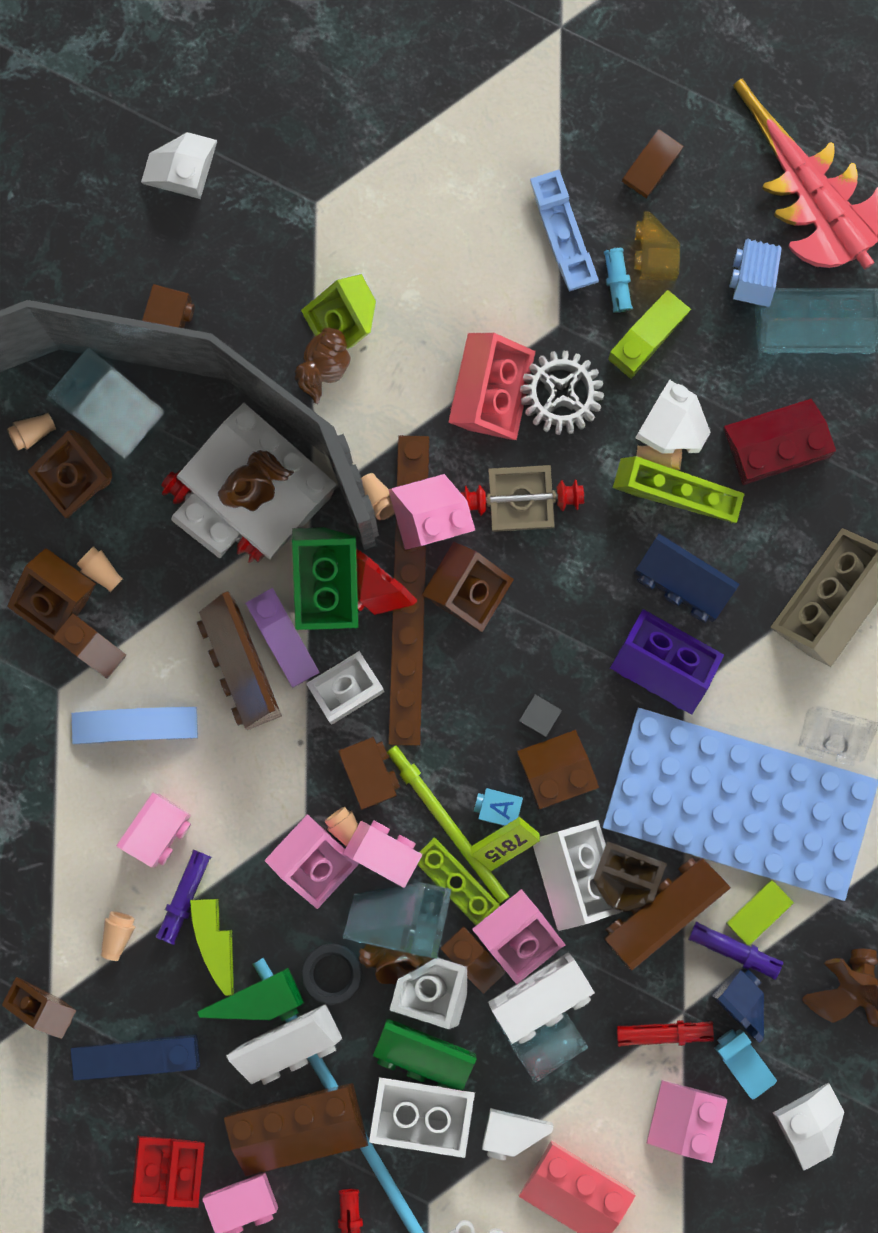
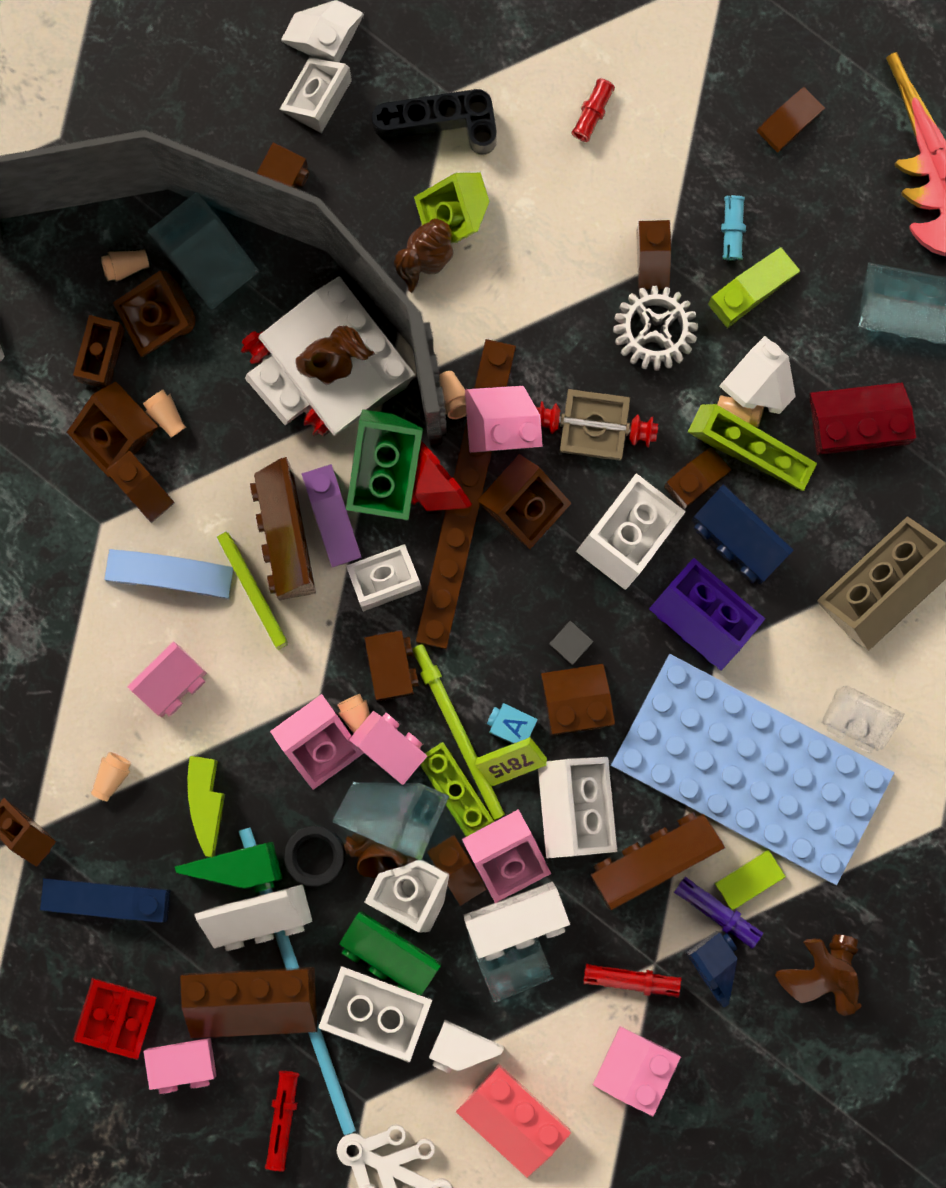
camera: 10 degrees right, 0 degrees up
(23, 522) = (98, 352): none -> reddish brown brick
(180, 904) = (184, 749): dark purple pin -> none
(186, 226) = (317, 92): none -> white slope
(220, 726) = (252, 590): none -> lime tile
(306, 232) = (434, 121): none -> black beam
(459, 191) = (593, 110): none -> red pin
(489, 385) = (586, 307): coral slope -> none
(545, 321) = (653, 254): none -> reddish brown slope
(563, 231) = (688, 168): light blue slope -> none
(577, 596) = (630, 531): none -> white slope
(627, 878) = (625, 819): dark brown slope -> none
(631, 530) = (697, 478): none -> reddish brown slope
(659, 250) = (779, 207): clear yellow slope -> none
(745, 1063) = (705, 1025): medium azure bracket -> none
(756, 272) = (872, 246): light blue brick -> none
(812, 1125) = (760, 1100): white slope -> none

